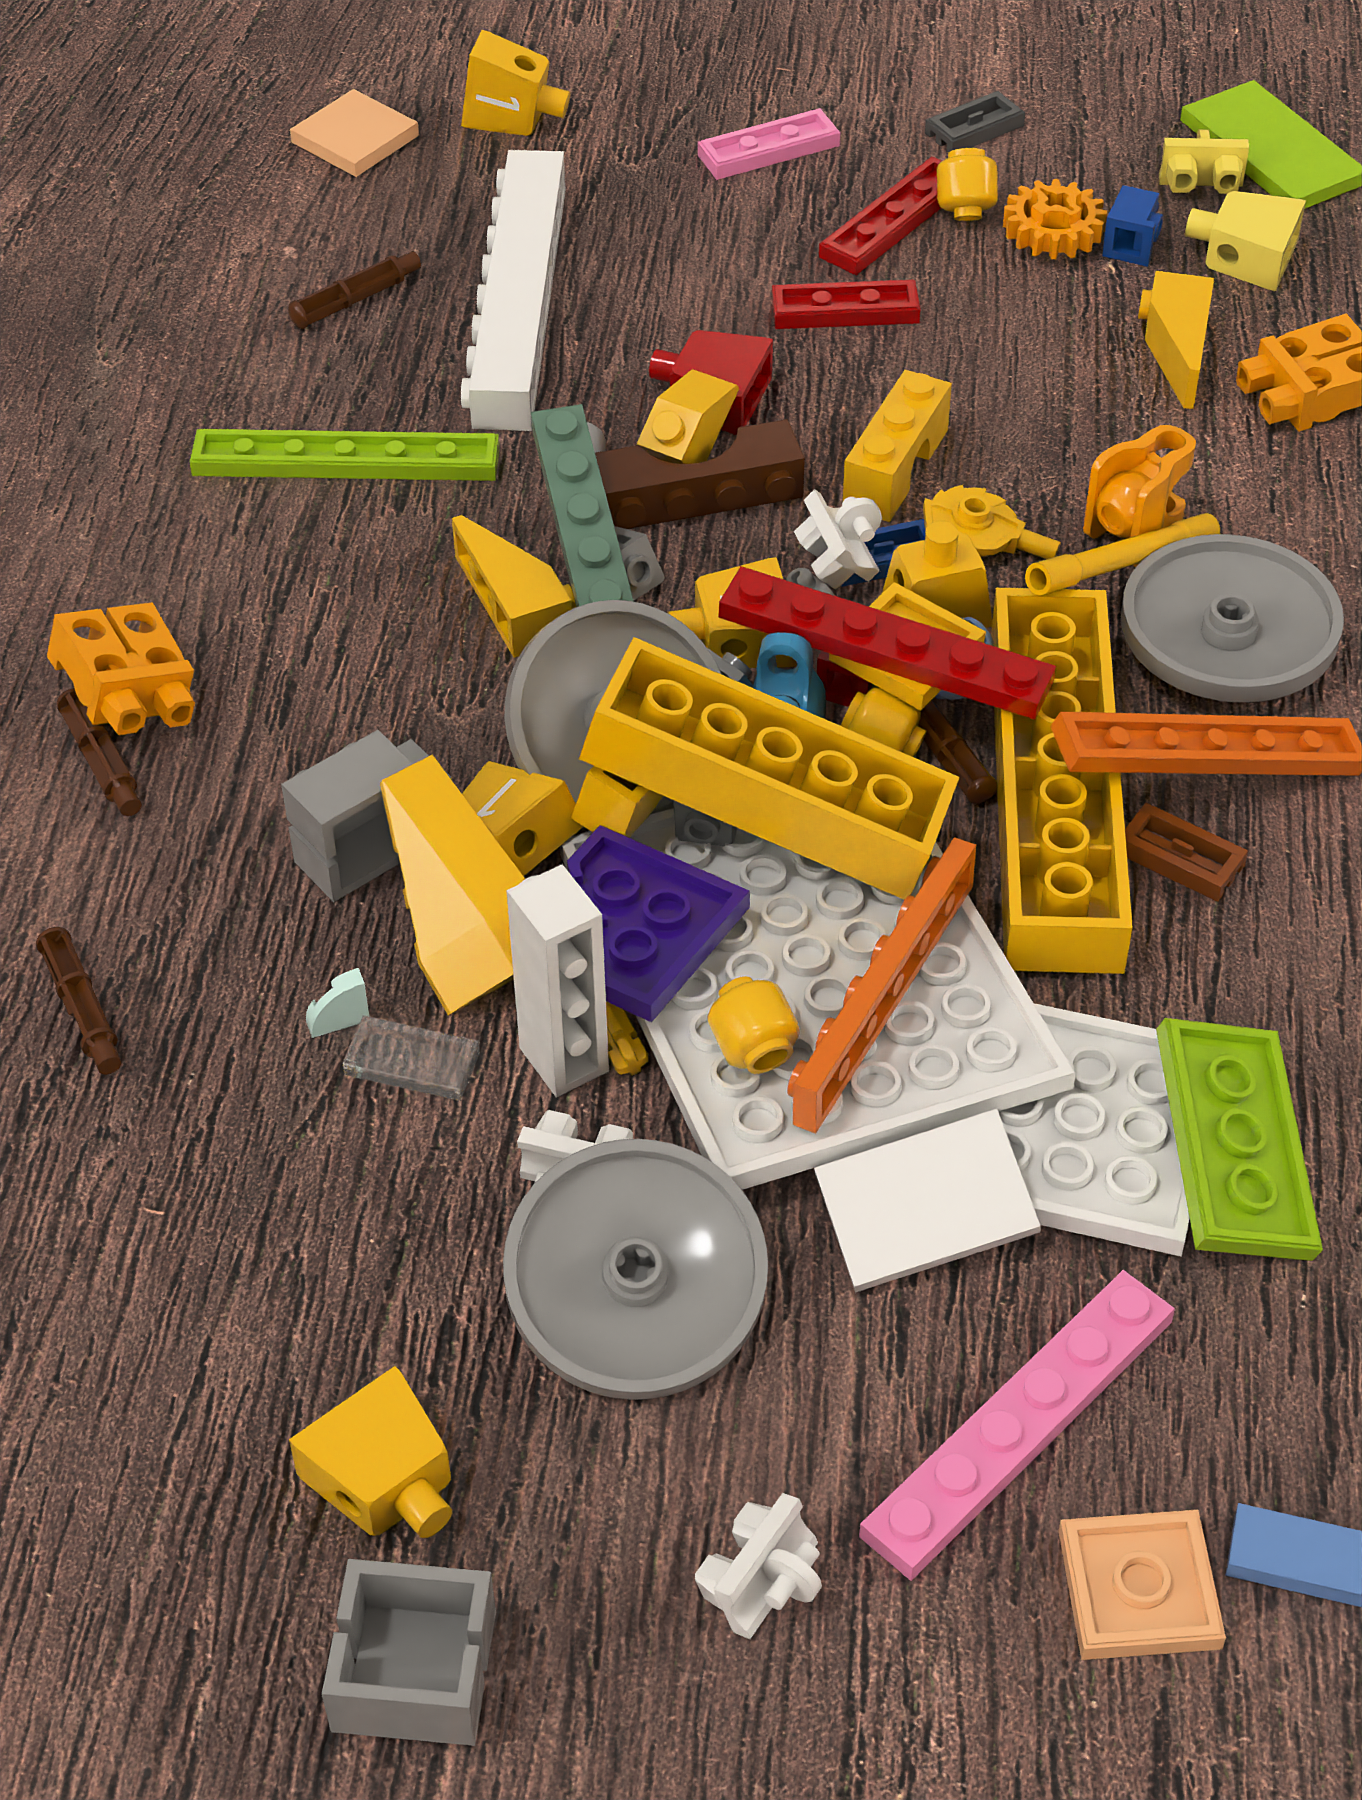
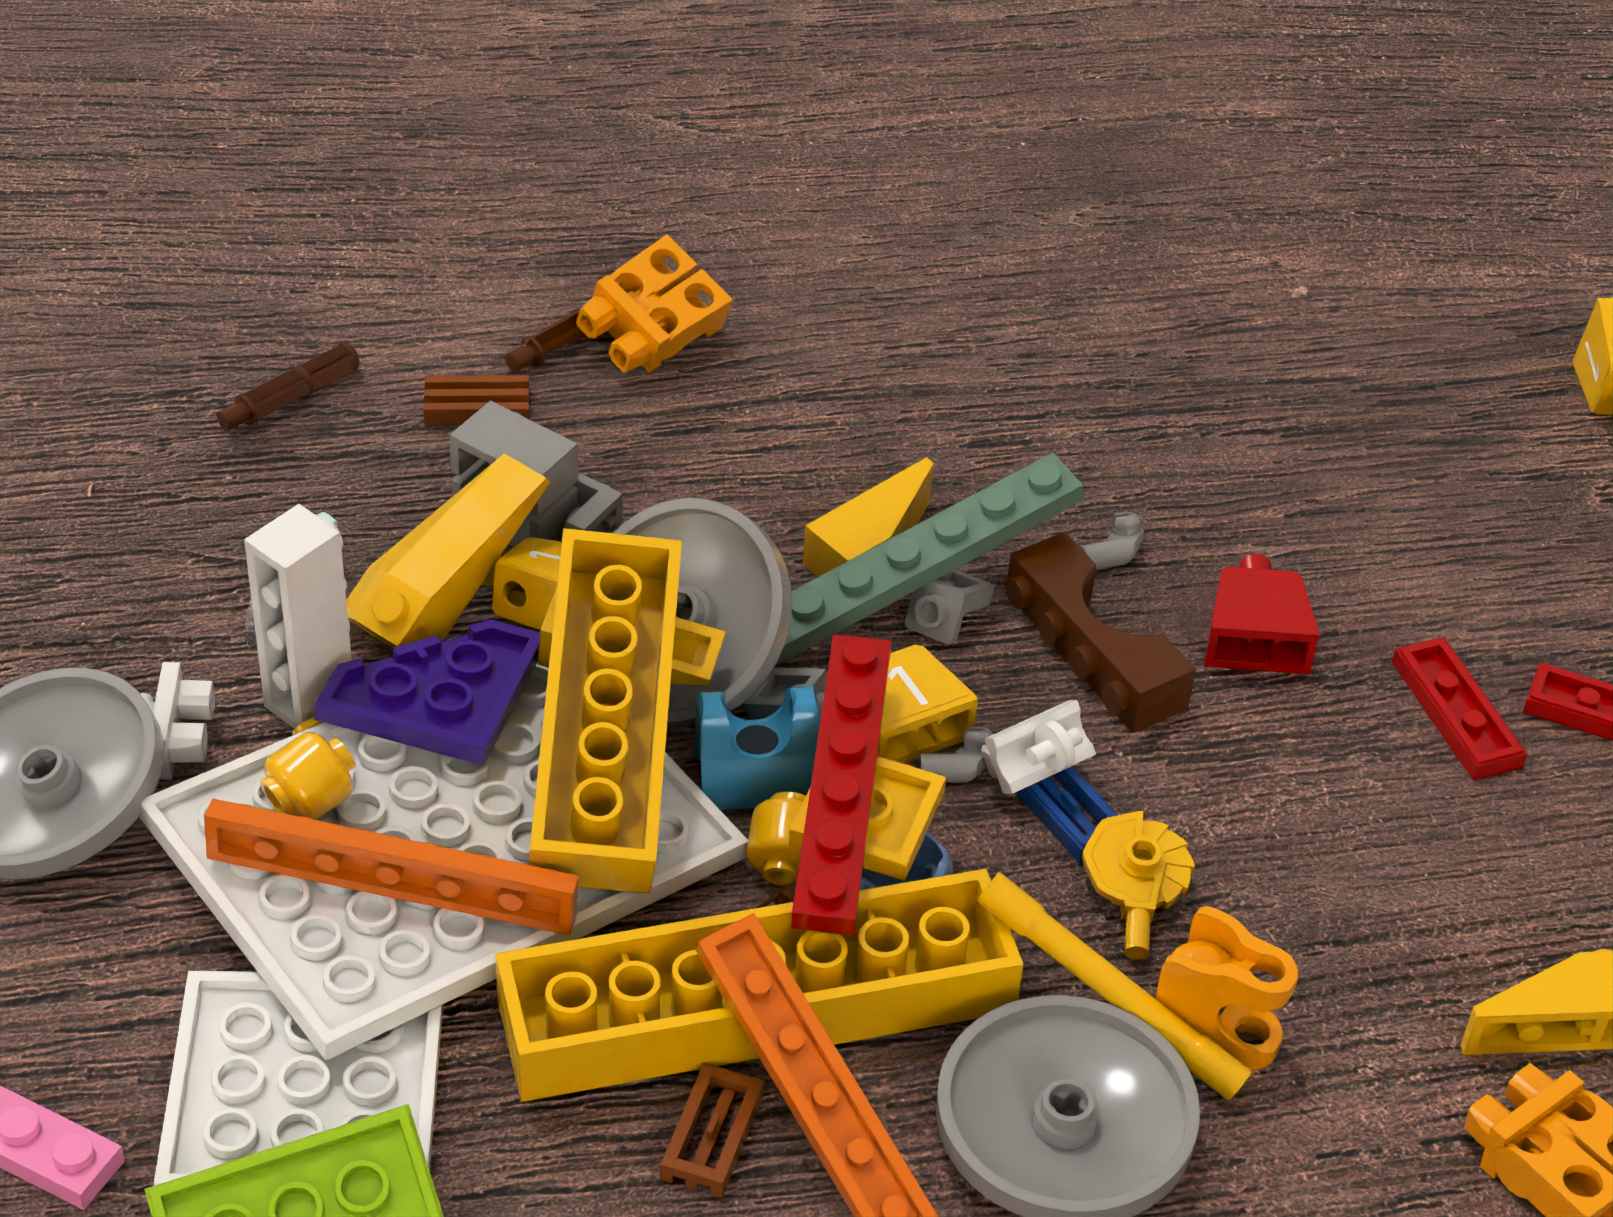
camera: 70 degrees right, 5 degrees down
(167, 811) = (458, 397): none -> dark orange tile
(345, 454) = (1017, 380): lime tile -> none
(352, 289) = (1256, 338): reddish brown piece -> none
(354, 132) = (1500, 287): light nougat tile -> none
(515, 292) = (1318, 444): white brick -> none
(688, 418) = (1155, 594): yellow slope -> none
(903, 428) = (1184, 761): yellow arch -> none
(927, 1200) = (164, 969): white tile -> none
(944, 571) = (1003, 831): yellow torso -> none

